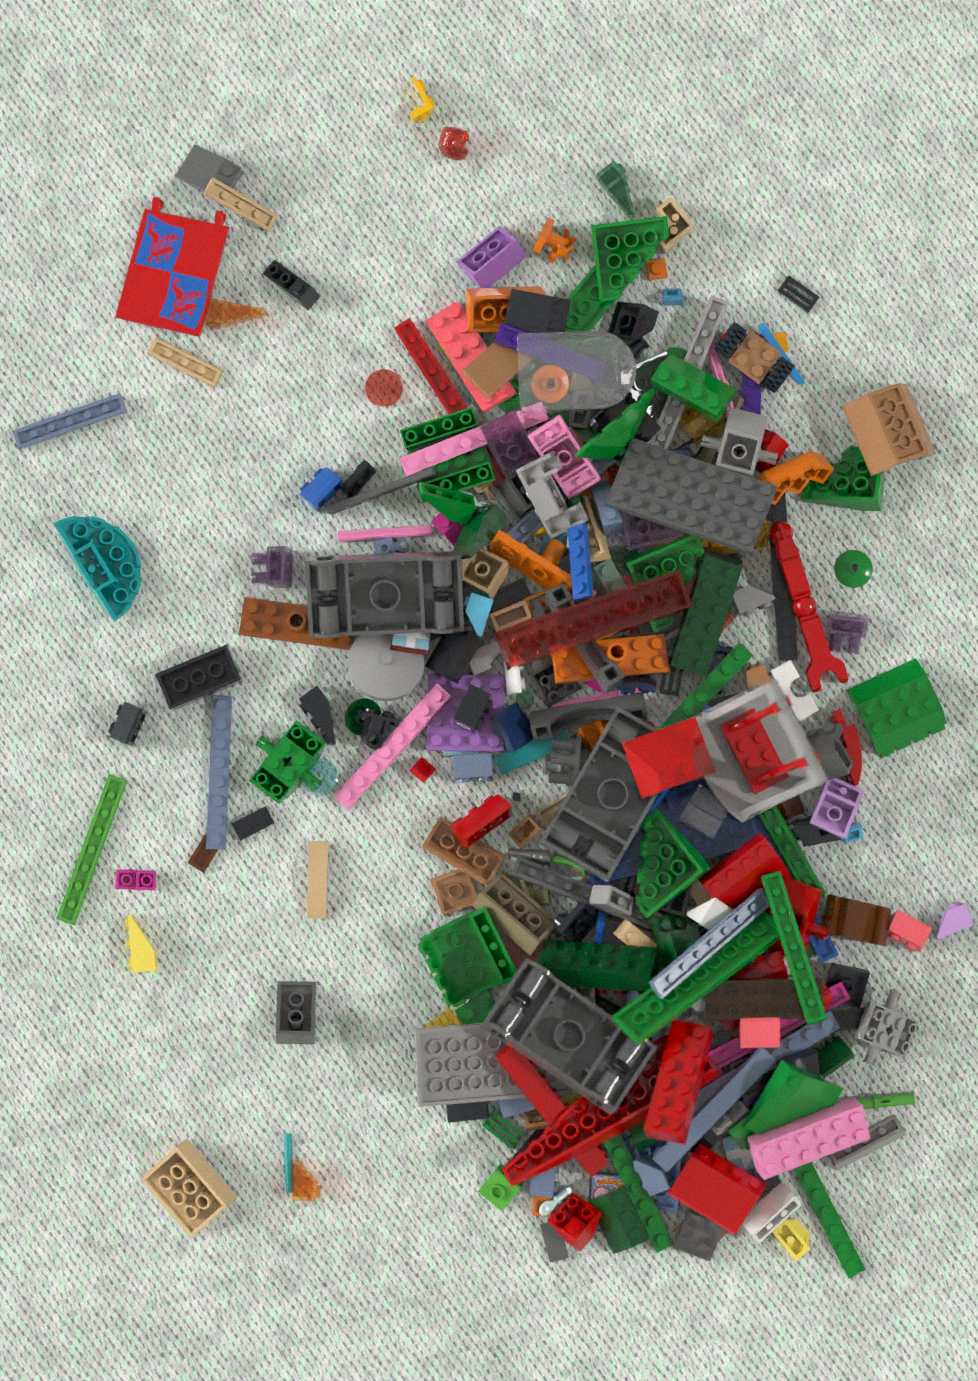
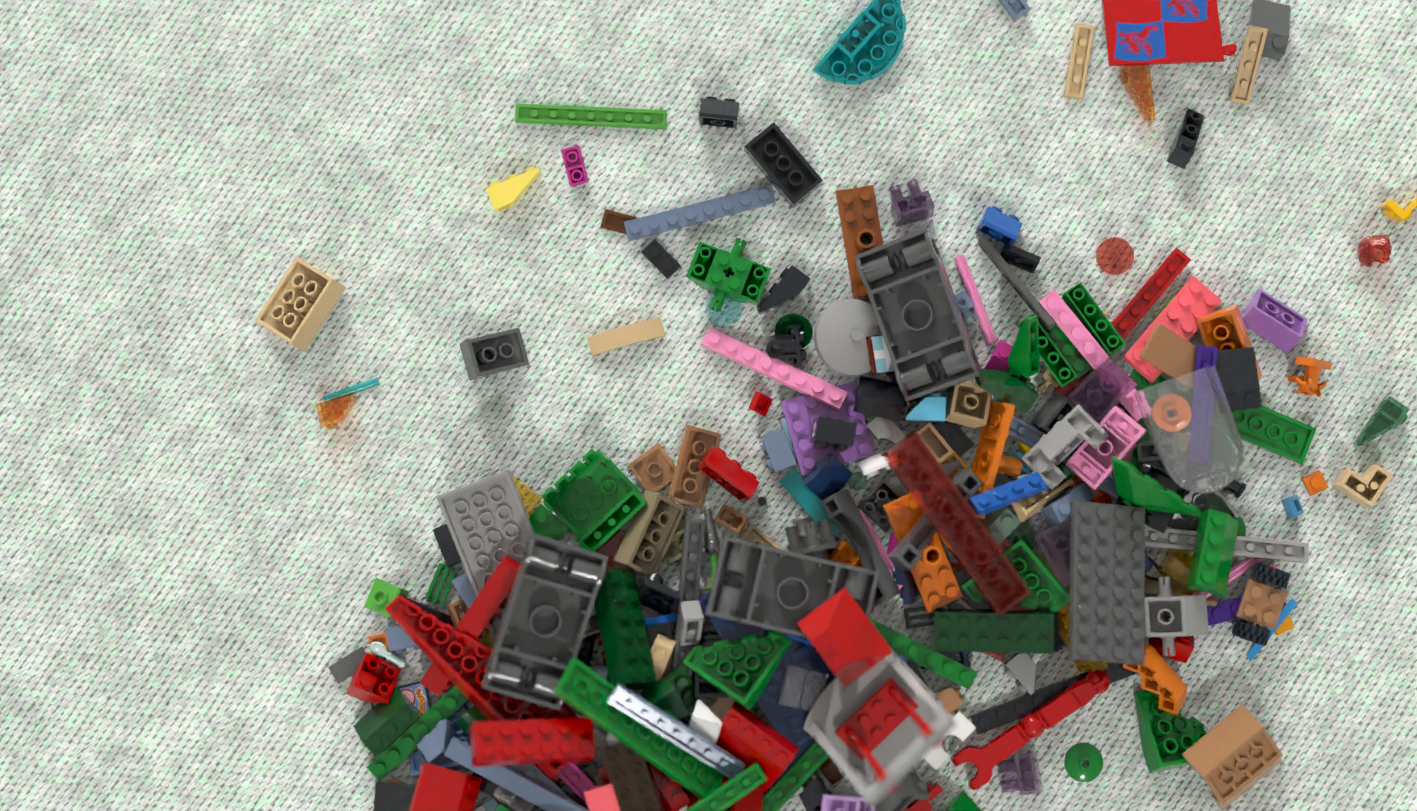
camera: 70 degrees right, 0 degrees up
(623, 250) = (1325, 444): green slope -> none
(632, 320) = (1259, 475): black slope -> none
(785, 285) = (1328, 626): black tile -> none

